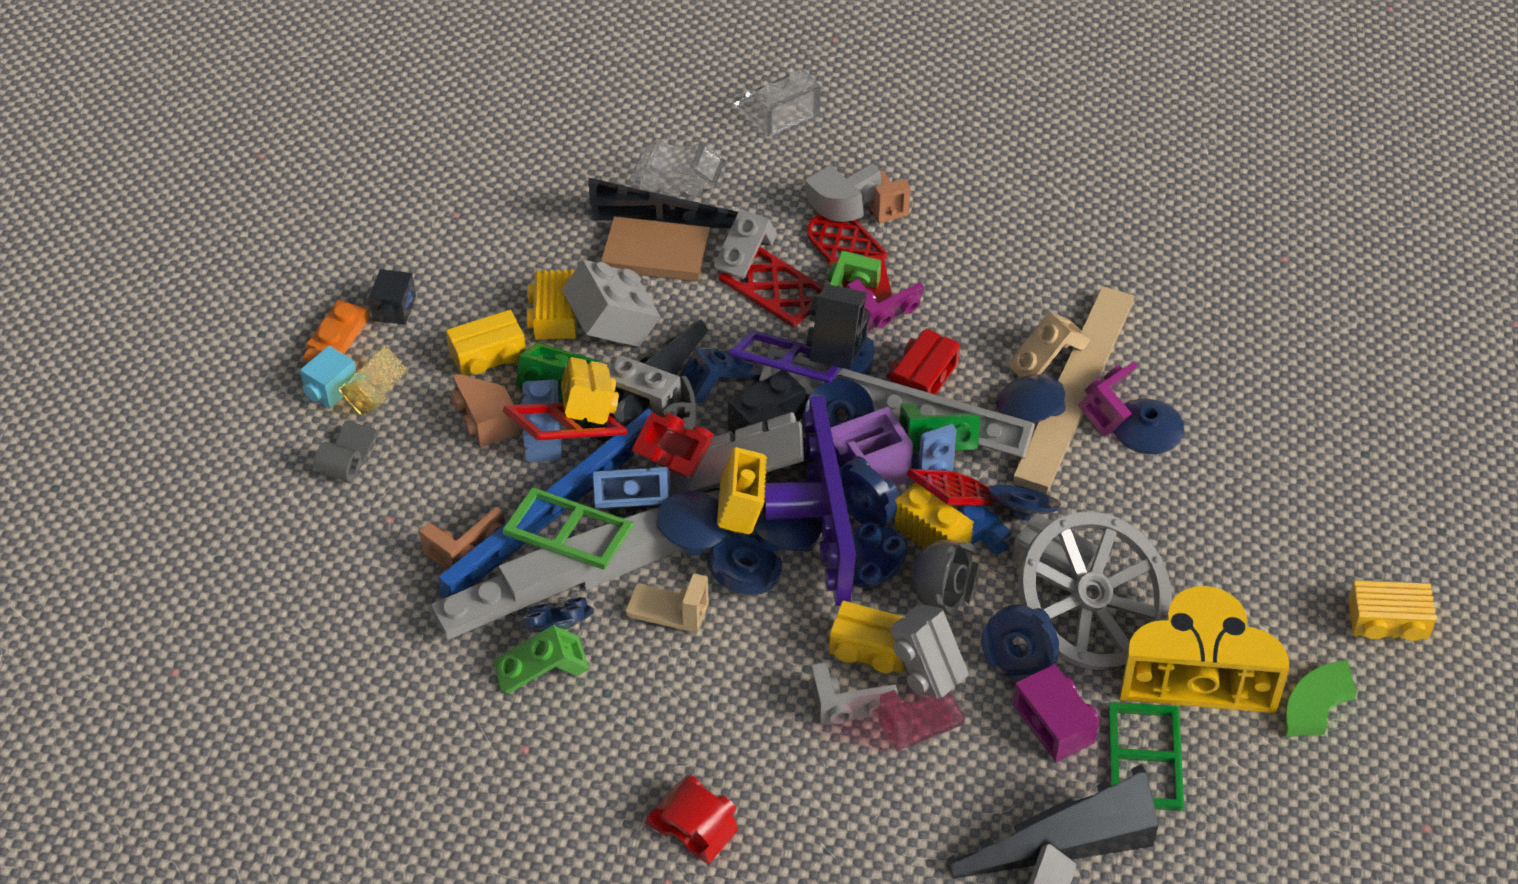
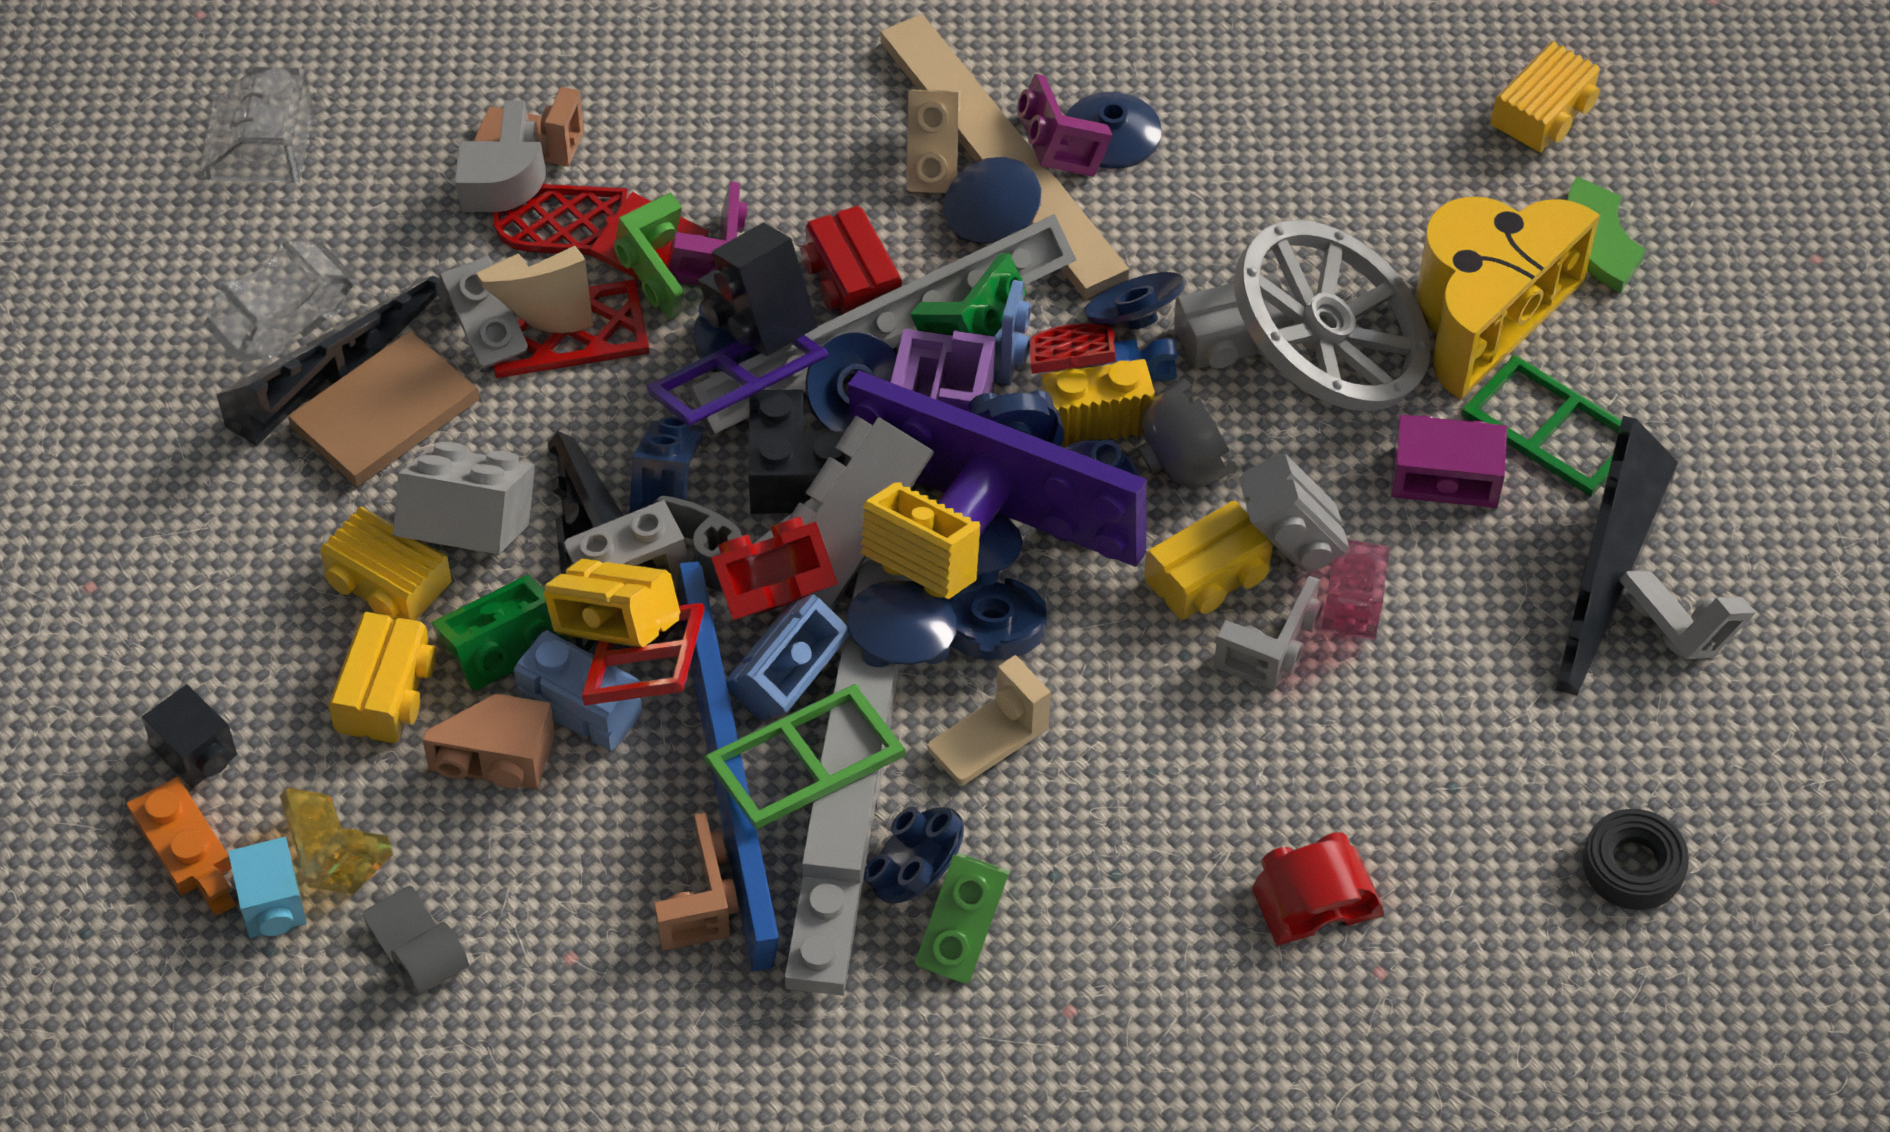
camera: 55 degrees left, 5 degrees up
(768, 251) = (545, 295): none -> tan slope
(1030, 625) = (1329, 407): dark blue plate -> none

